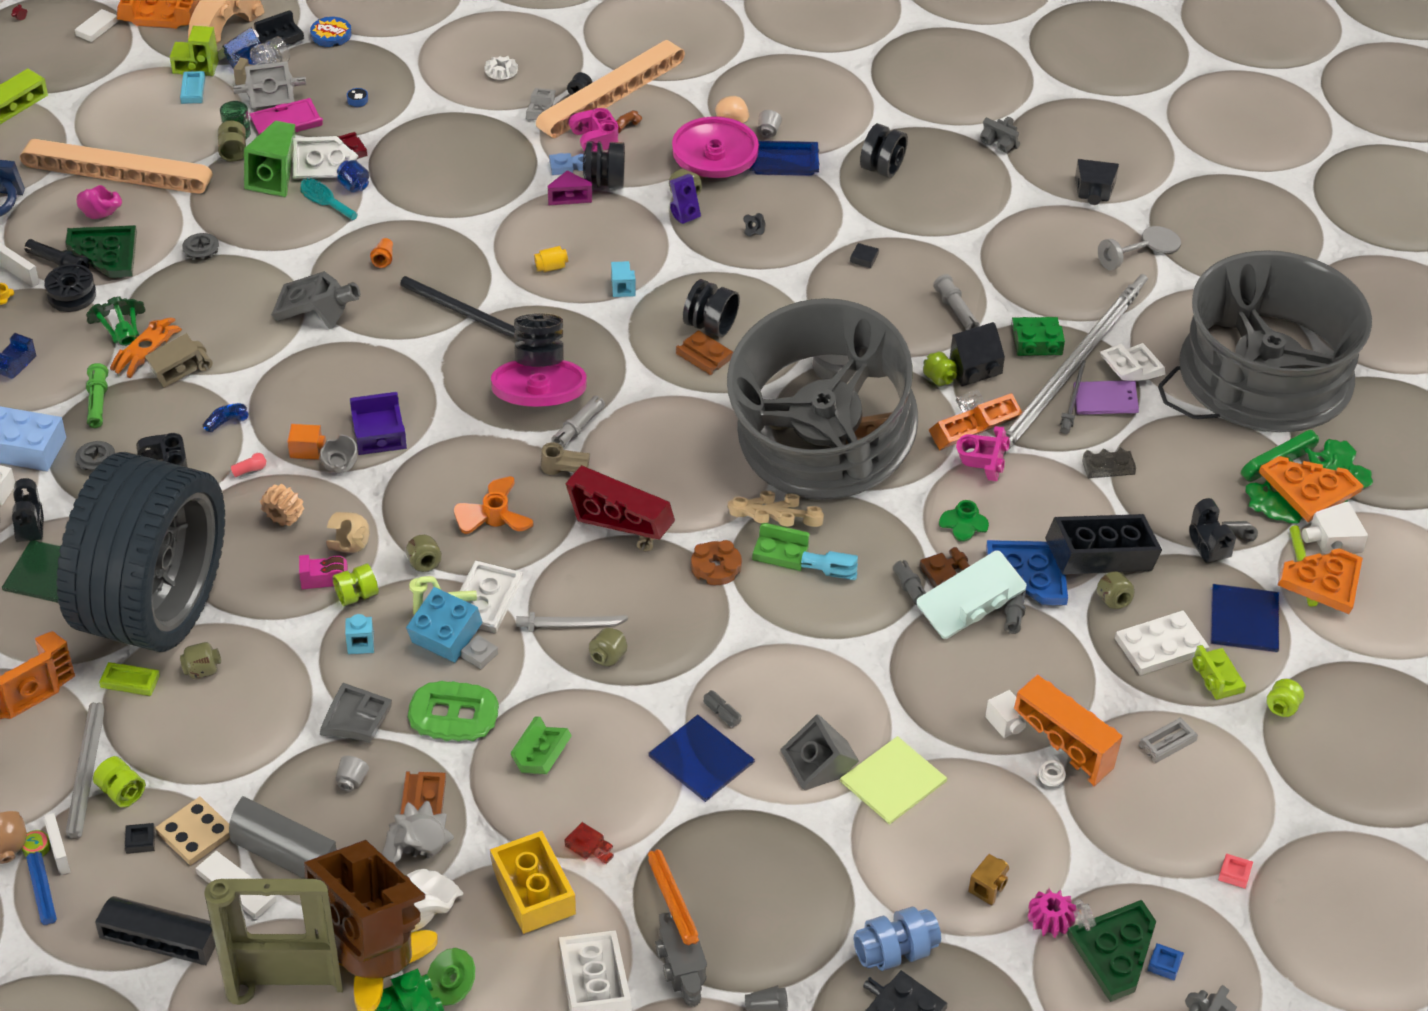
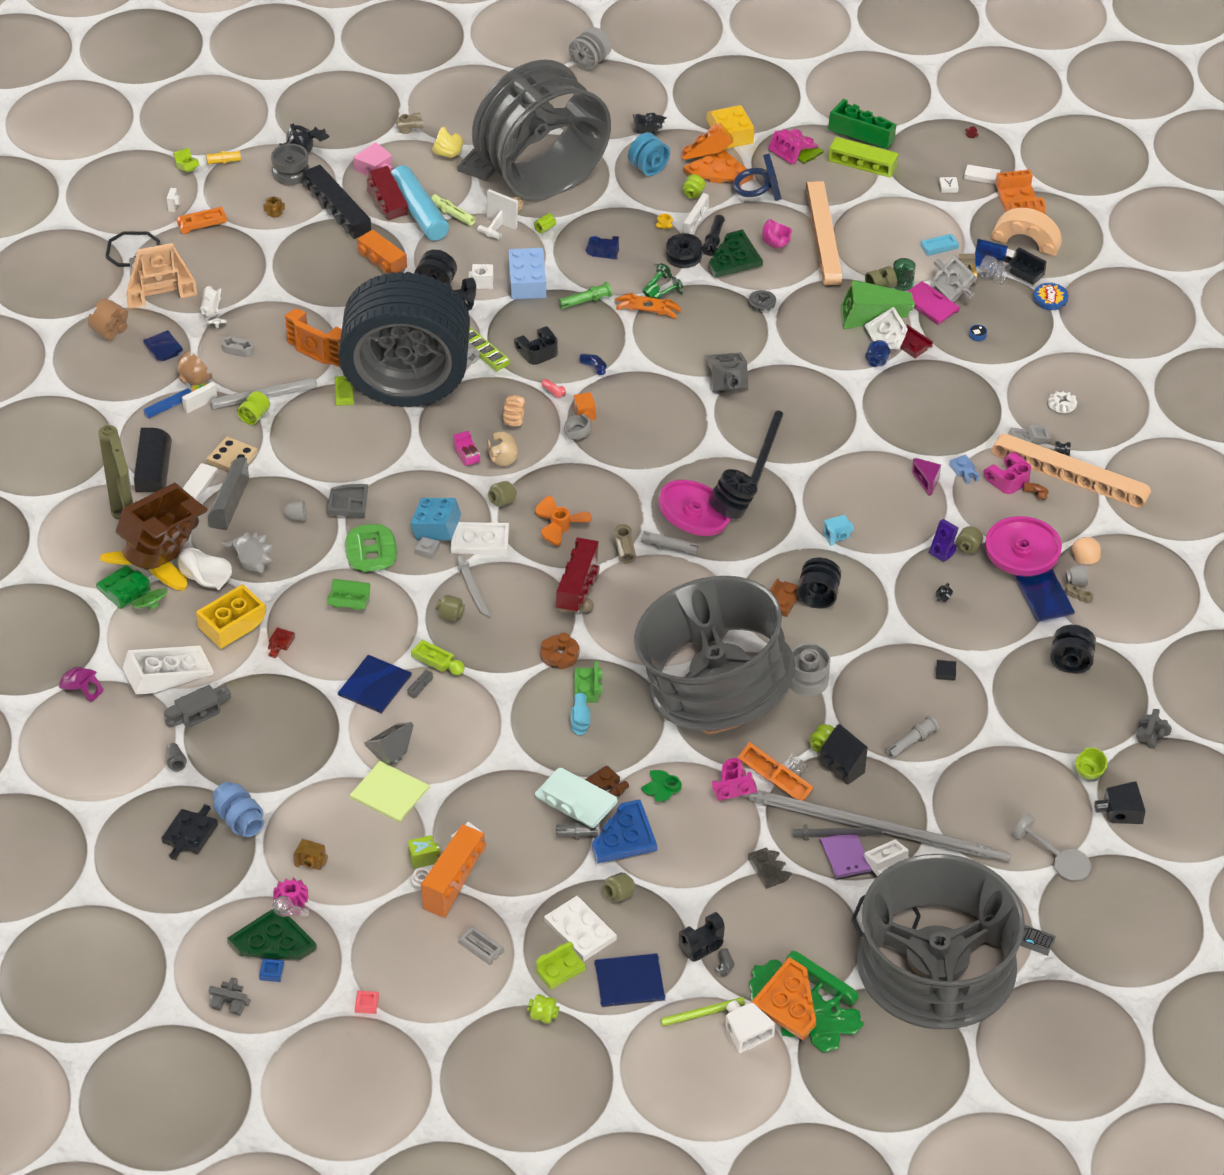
camera: 75 degrees right, 0 degrees up
(88, 452) = (535, 310): dark grey gear -> none
(96, 53) = (949, 185): none -> white tile
(139, 838) = (218, 433): black tile -> none
(177, 359) = (635, 322): dark tan hinge -> none
(196, 54) = (968, 230): lime brick -> none
(200, 660) = (364, 413): olive head -> none
(323, 195) = (852, 347): teal piece -> none
(359, 627) = (415, 482): medium azure brick -> none
(364, 582) = (458, 467): lime wheel -> none
(378, 423) = (620, 440): dark purple panel -> none
(382, 254) = (801, 393): orange cone -> none
(419, 586) = (456, 492): yellowish green piece -> none
(422, 788) = (290, 550): dark orange plate -> none
(551, 259) = (840, 484): yellow brick -> none
(605, 164) = (959, 484): black wheel -> none
(673, 897) = (238, 686): orange axle -> none
(686, 680) = (437, 658): none -> lime plate
(778, 511) = (618, 651): tan plant -> none
(794, 132) = (1075, 592): none -> dark tan piece
(909, 581) = (582, 763): dark grey pin -> none
(1013, 761) = (423, 851): none -> lime brick
(1037, 336) = (899, 797): green plate -> none
(1038, 185) = (1091, 763): none -> lime hair
(1103, 544) = (658, 867): black brick -> none
(1324, 578) = (684, 1021): orange plate -> none

